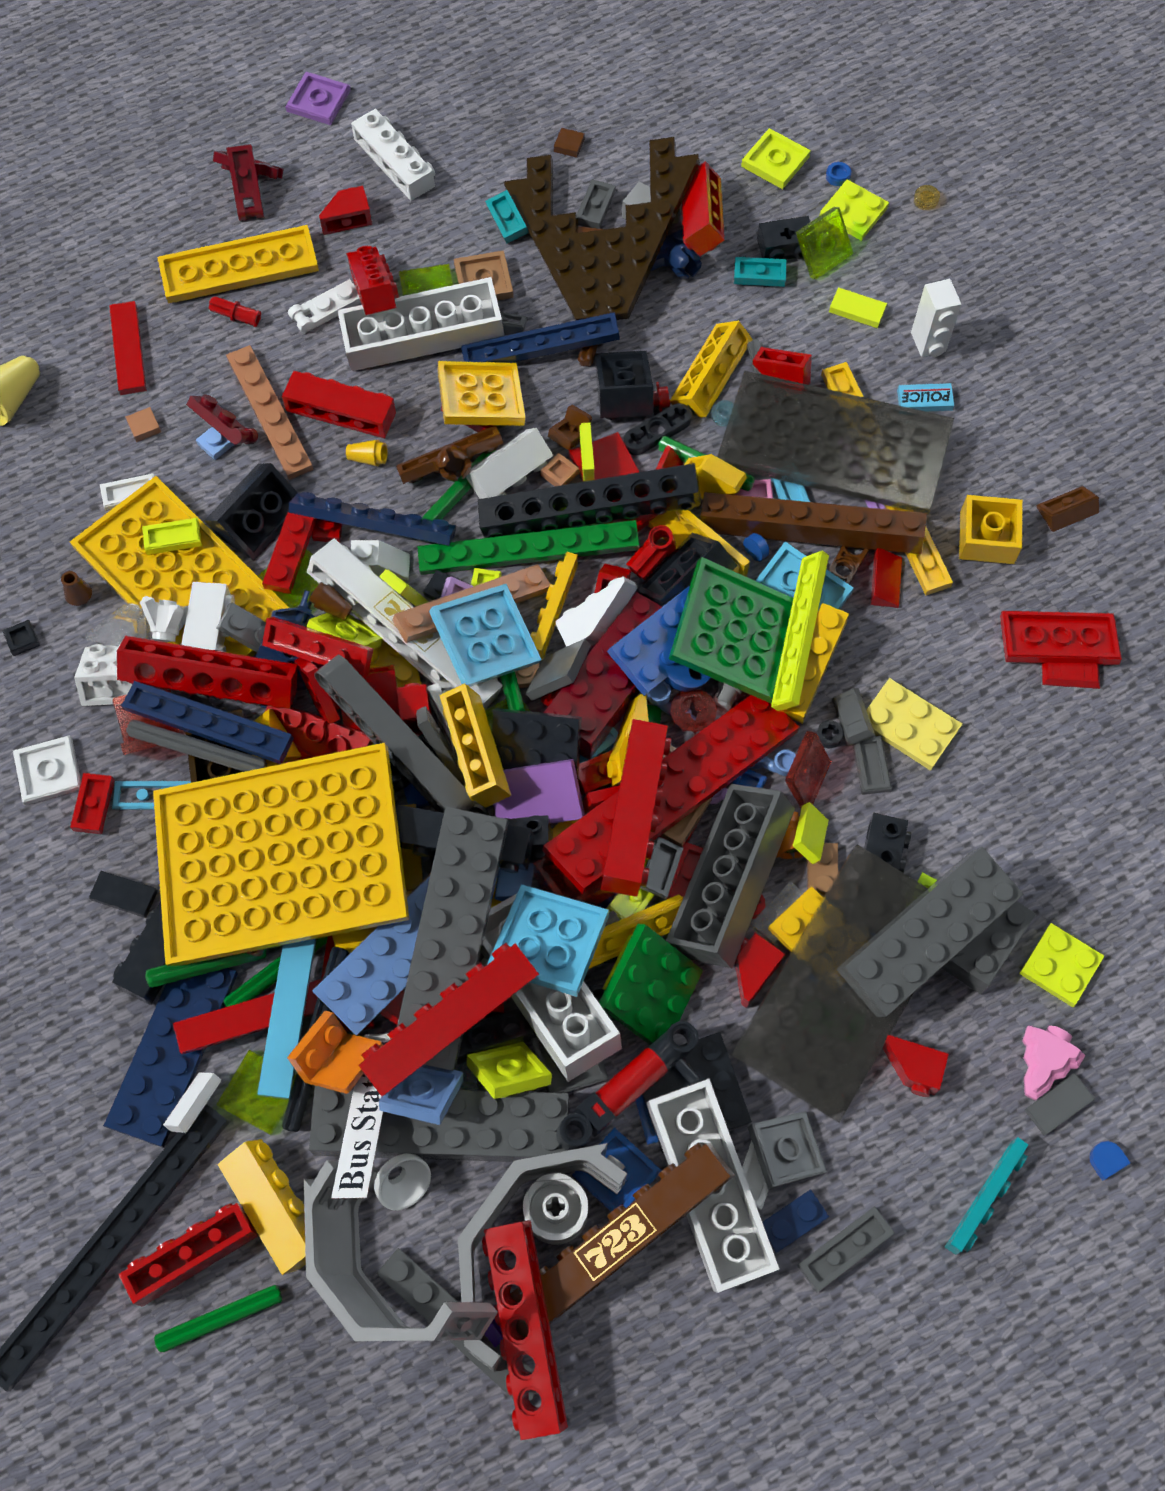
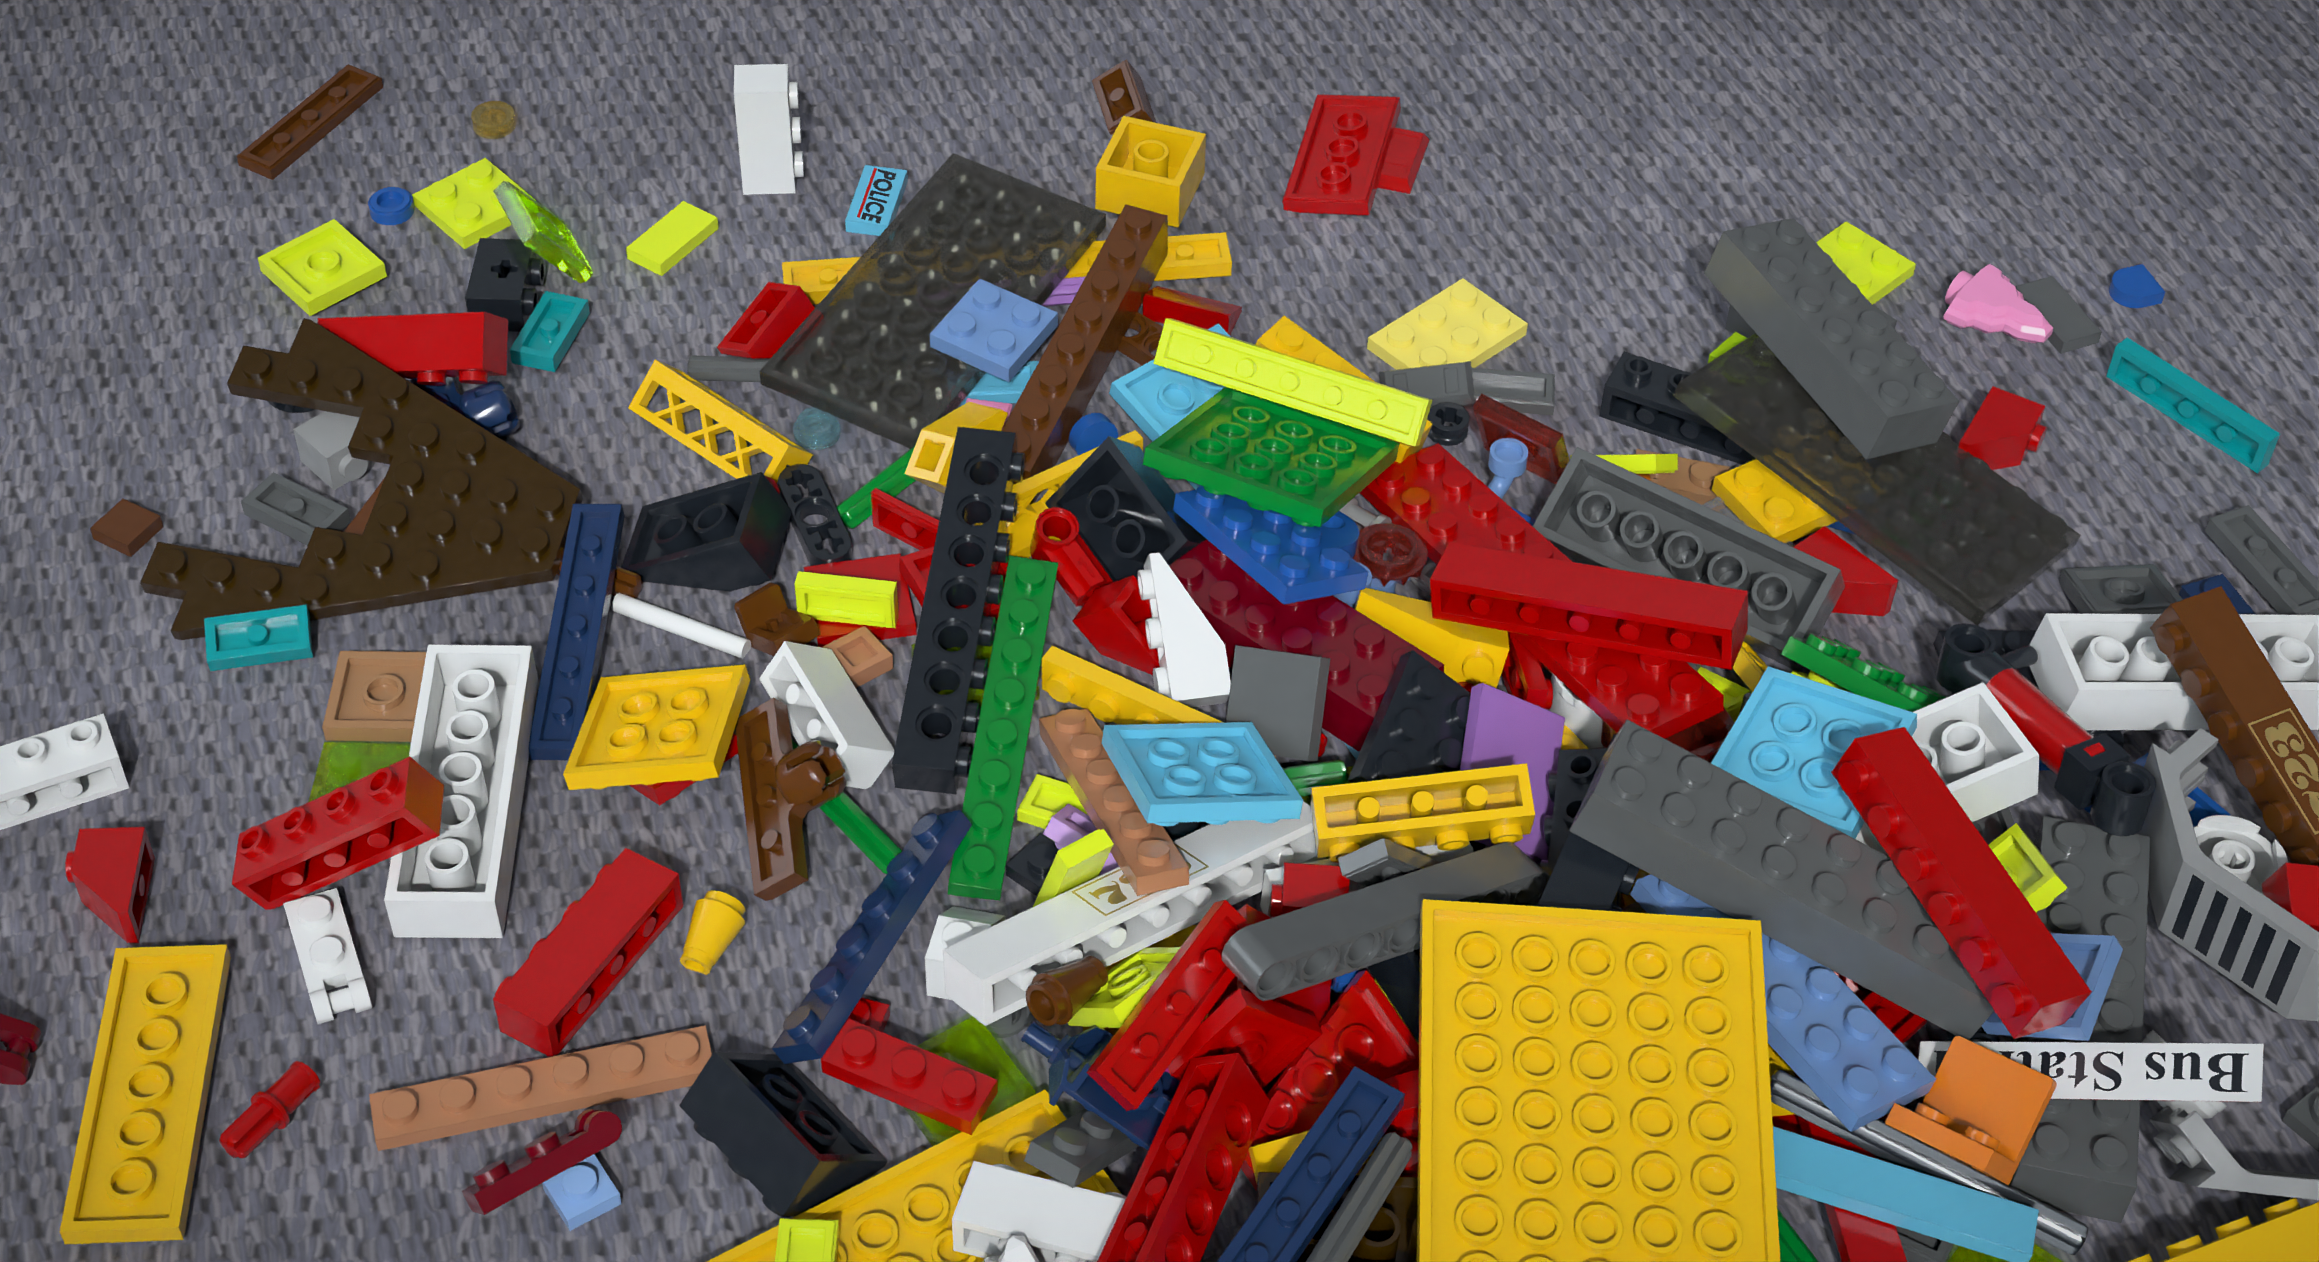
camera: 80 degrees left, 20 degrees down
(566, 389) = (681, 625): none -> white bar
(808, 473) = (994, 330): none -> medium blue plate
(894, 117) = (309, 122): none -> reddish brown tile

